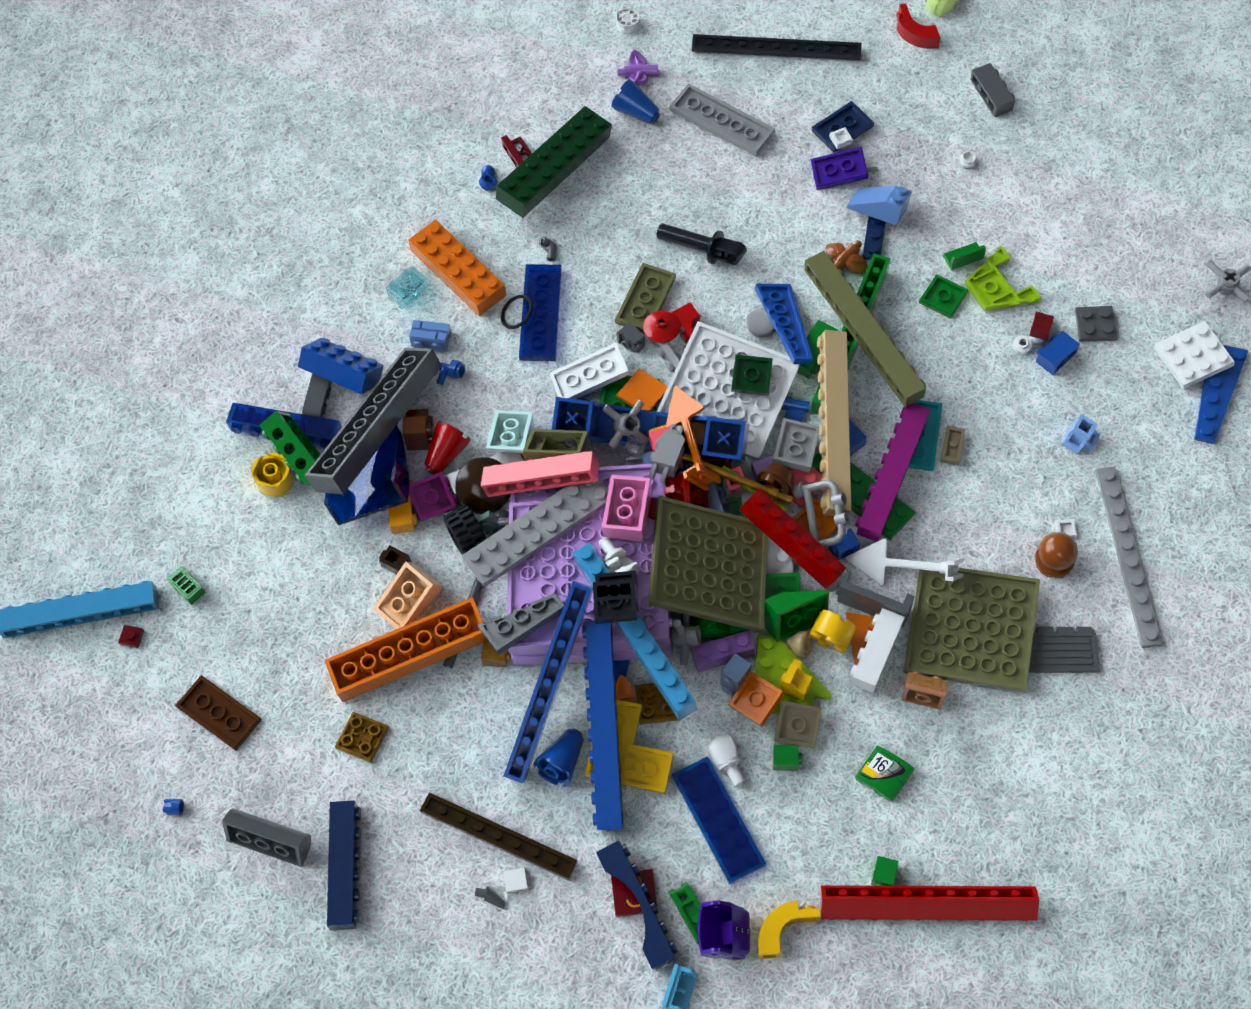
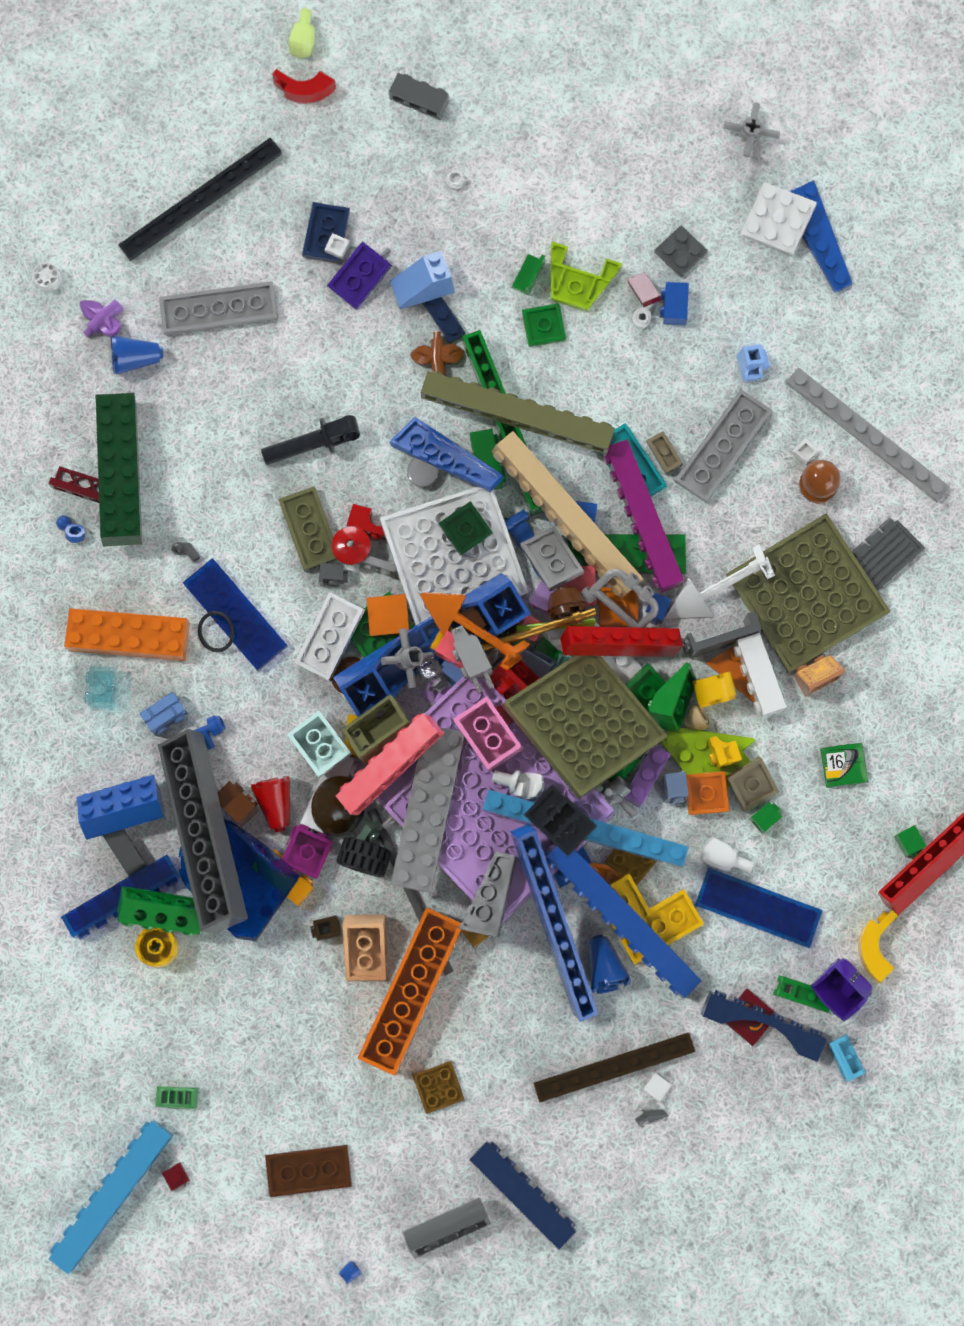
camera: 45 degrees left, 15 degrees up
(1003, 475) = (723, 446): none -> light grey plate

